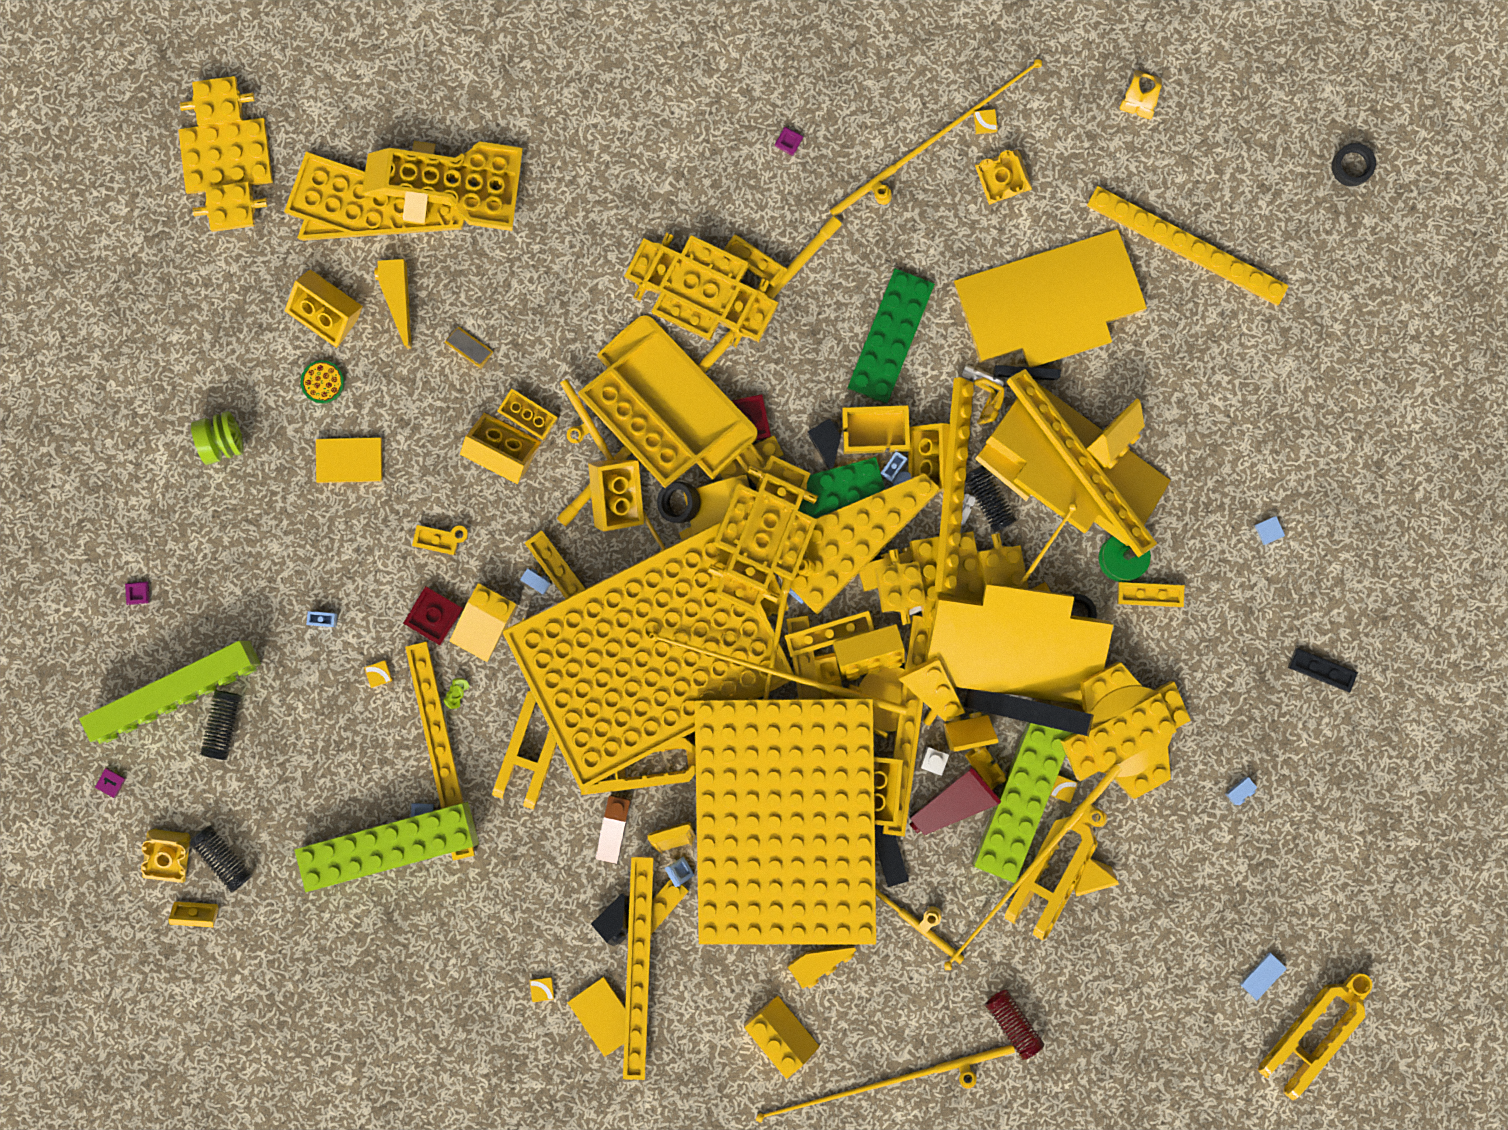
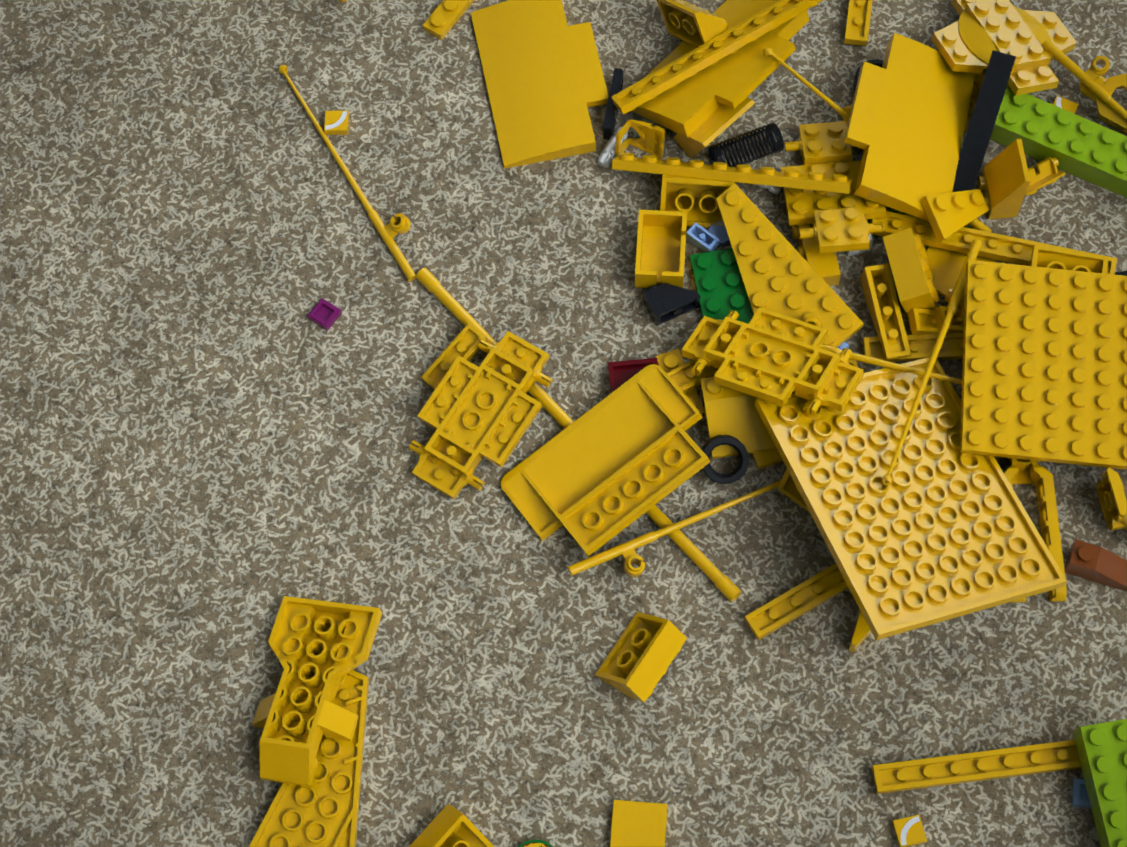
camera: 80 degrees left, 20 degrees down
(394, 285) = (430, 763): yellow slope -> none
(433, 616) = (840, 755): dark red plate -> none
(438, 540) = (747, 740): yellow hinge -> none
(455, 693) = (936, 737): lime piece -> none
(469, 347) = (514, 684): flat silver slope -> none
(483, 622) = (851, 695): yellow slope -> none
(512, 757) = (999, 668): yellow piece -> none
(527, 414) = (603, 621): yellow piece -> none
(535, 581) = (805, 631): light blue piece -> none
(616, 494) = (710, 525): yellow slope -> none
(890, 336) = (557, 232): green plate -> none
(934, 761) = (1032, 224): white brick -> none
(954, 802) = (1076, 205): dark red slope -> none
(1003, 176) = (398, 109): yellow slope -> none
(1121, 562) = (823, 32): green wheel -> none

